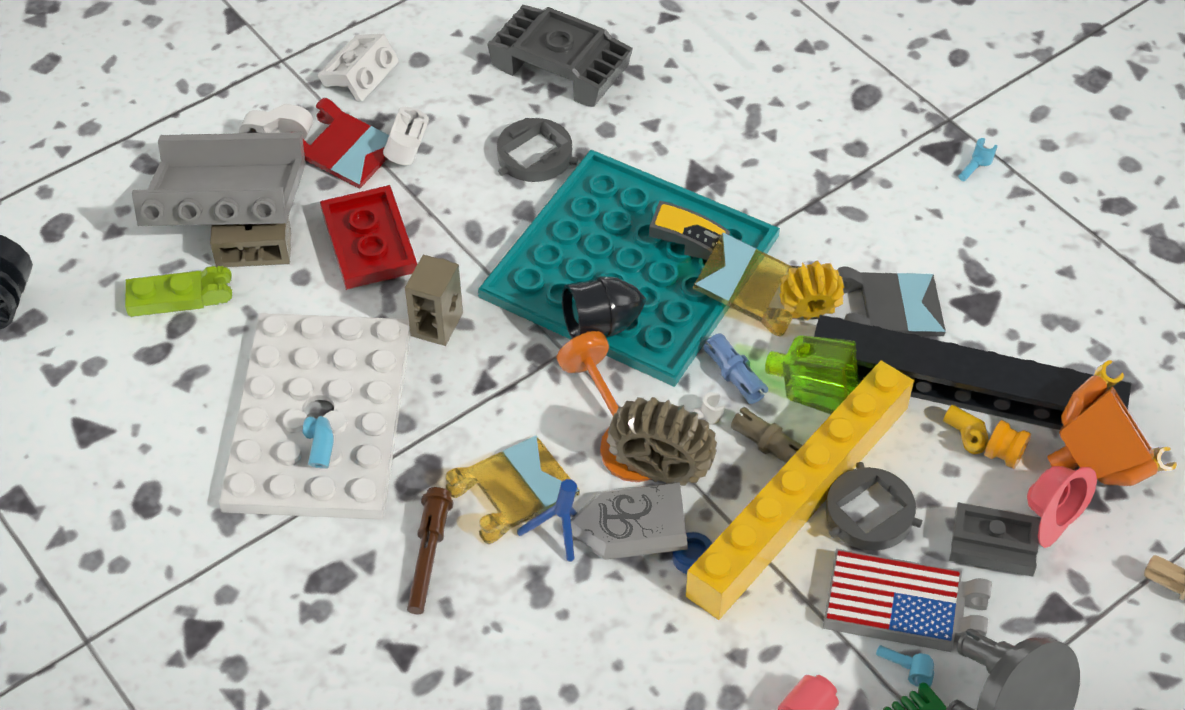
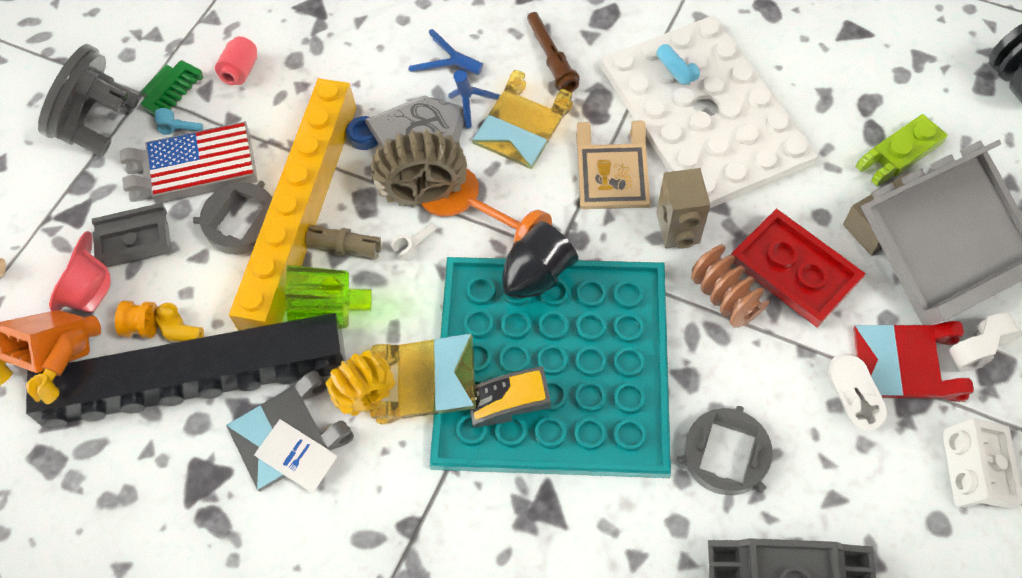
camera: 155 degrees right, 10 degrees up
(442, 232) = (727, 288): none -> nougat piece
(460, 392) = (613, 173): none -> tan flag
(540, 592) = (456, 58): none -> blue plant
(735, 368) = (401, 291): medium blue pin -> none
(890, 279) = (296, 456): none -> white sticker

